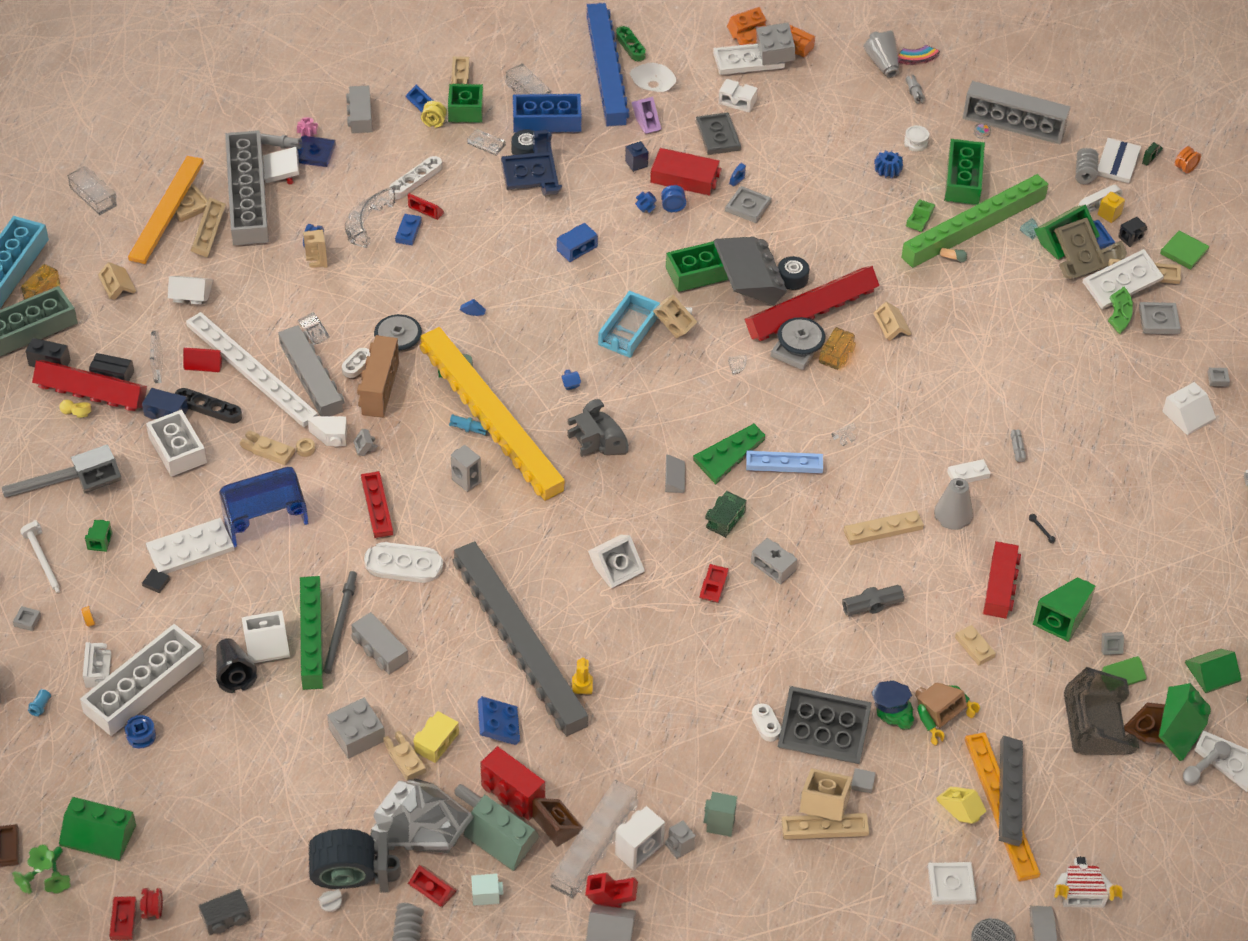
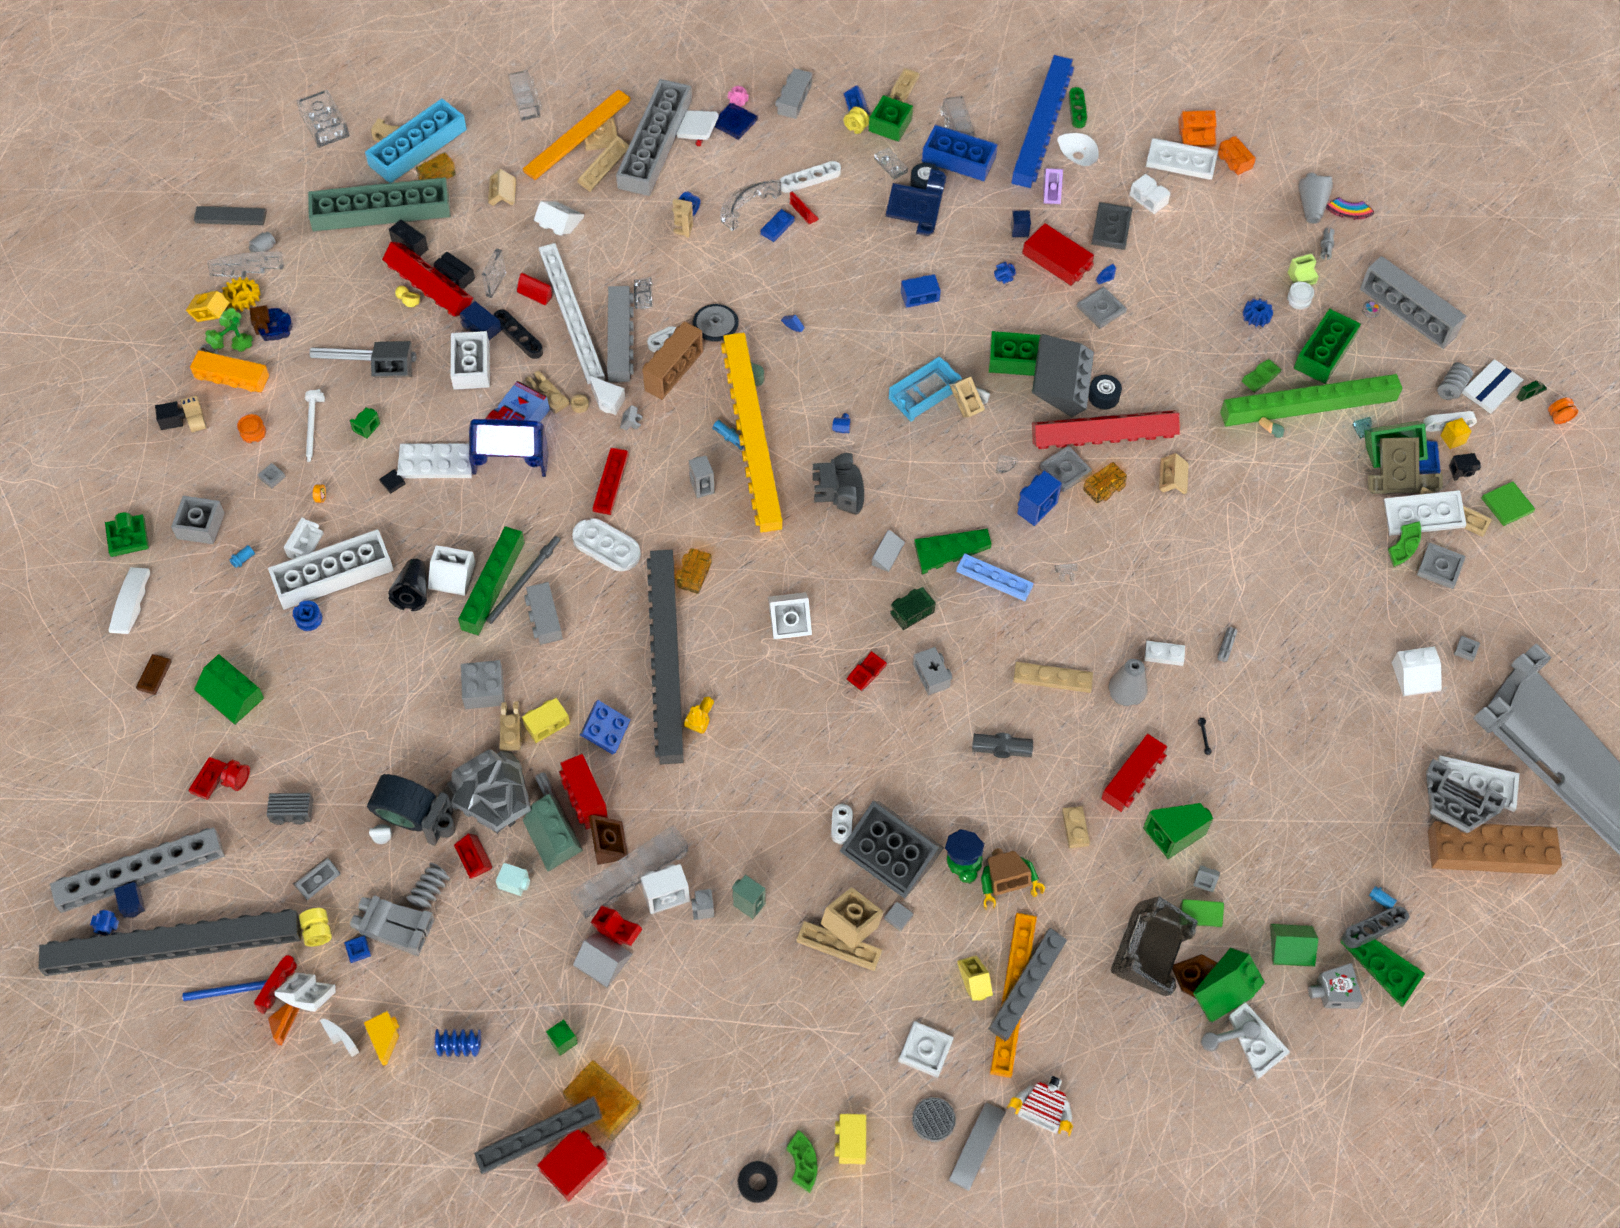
camera: 25 degrees right, 10 degrees up
(43, 859) = (161, 702): bright green plant -> none
(252, 461) = (521, 404): none -> medium blue piece
(282, 141) = (709, 102): light grey pin -> none
(503, 553) = (694, 570): none -> clear yellow brick
(673, 198) = (1031, 278): blue wheel -> none
(775, 43) = (1210, 153): light grey brick -> none
(787, 379) = (1039, 497): none -> blue brick
(801, 335) = (1080, 468): light grey wheel -> none
(907, 116) = (1303, 269): none -> yellowish green piece

